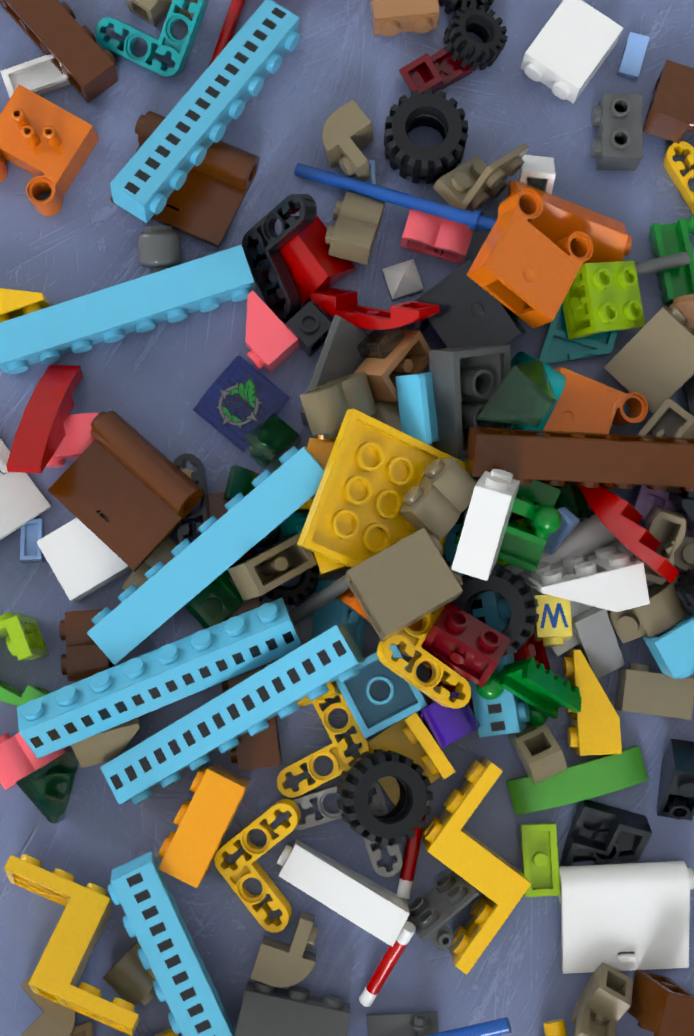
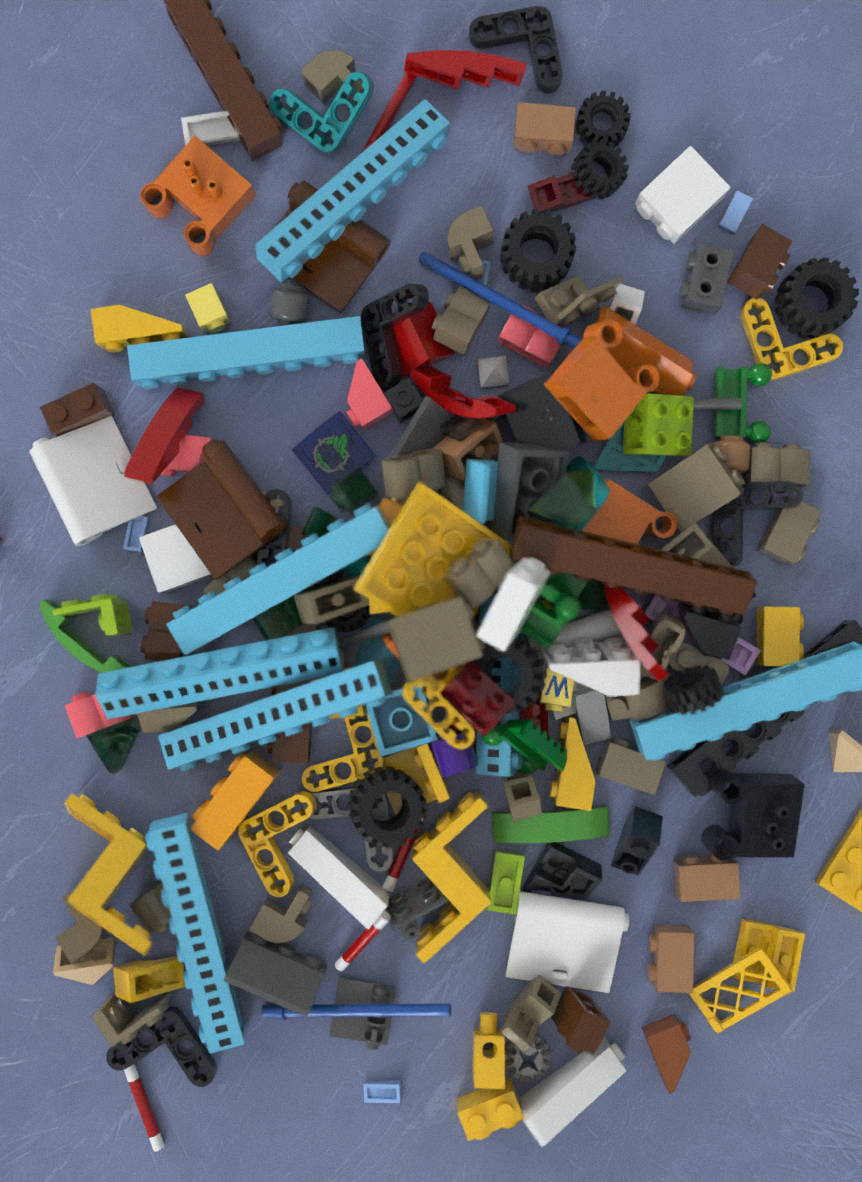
camera: 15 degrees right, 5 degrees up
(68, 271) = (208, 309): none -> light yellow brick
(567, 525) = (586, 612): light blue piece -> none

